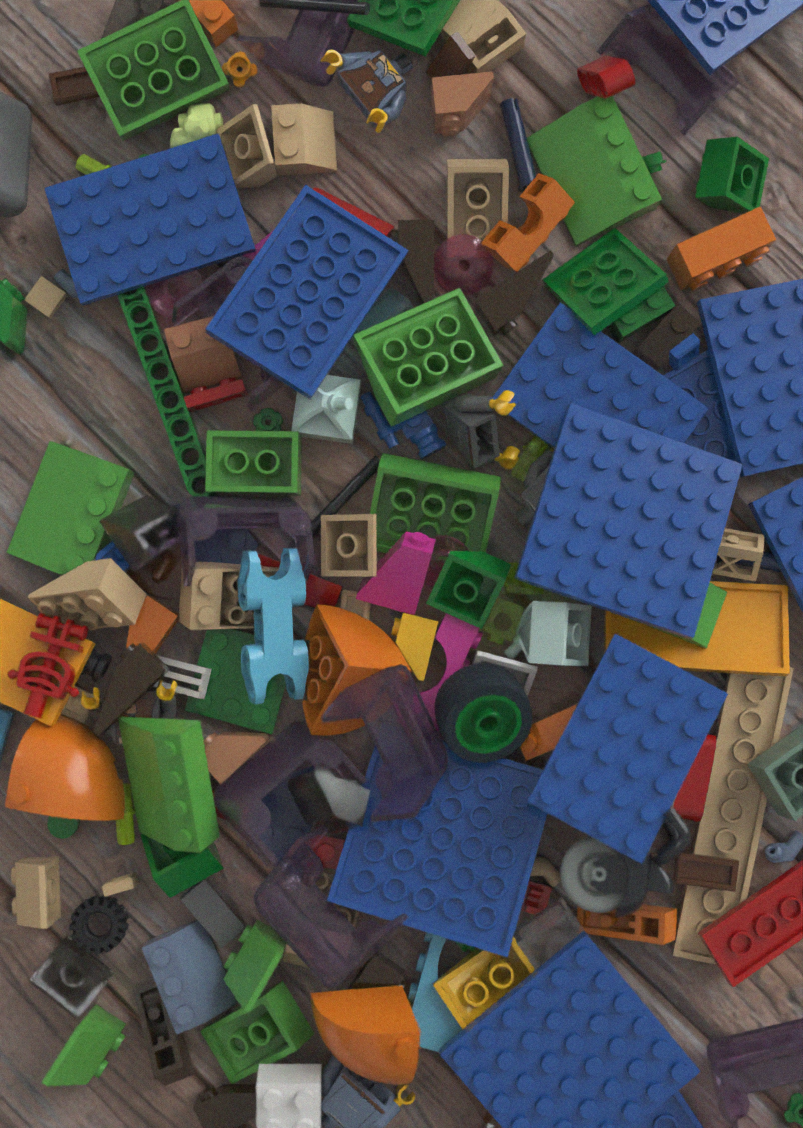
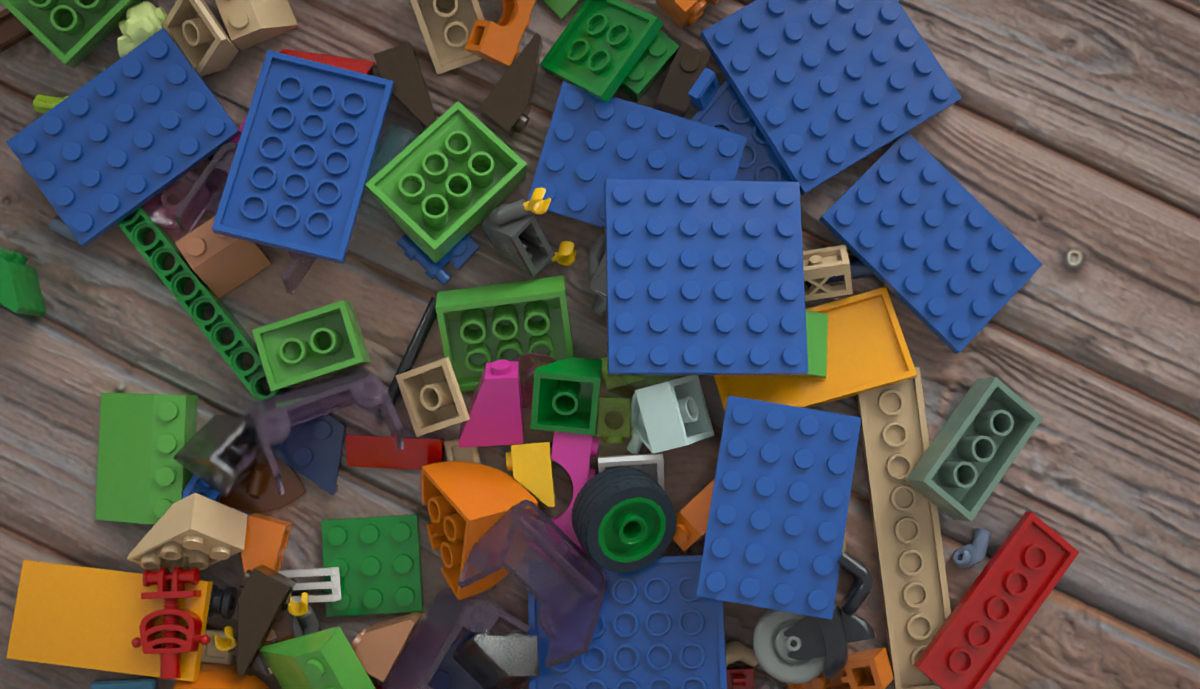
camera: 15 degrees left, 0 degrees up
(45, 297) = (48, 250): tan tile -> none
(203, 397) = (241, 297): red plate -> none
(213, 598) = (332, 488): tan slope -> none
(268, 414) = (311, 291): green plate -> none
(272, 606) = (376, 483): medium azure piece -> none
(330, 412) = (370, 267): light aqua piece -> none
(428, 441) = (479, 265): blue wheel -> none
(459, 248) = (451, 59): clear pink dish -> none
(531, 452) = (586, 240): clear neon green axle -> none
(693, 792) = (861, 521): red beam -> none
(706, 871) = (901, 600): reddish brown tile -> none

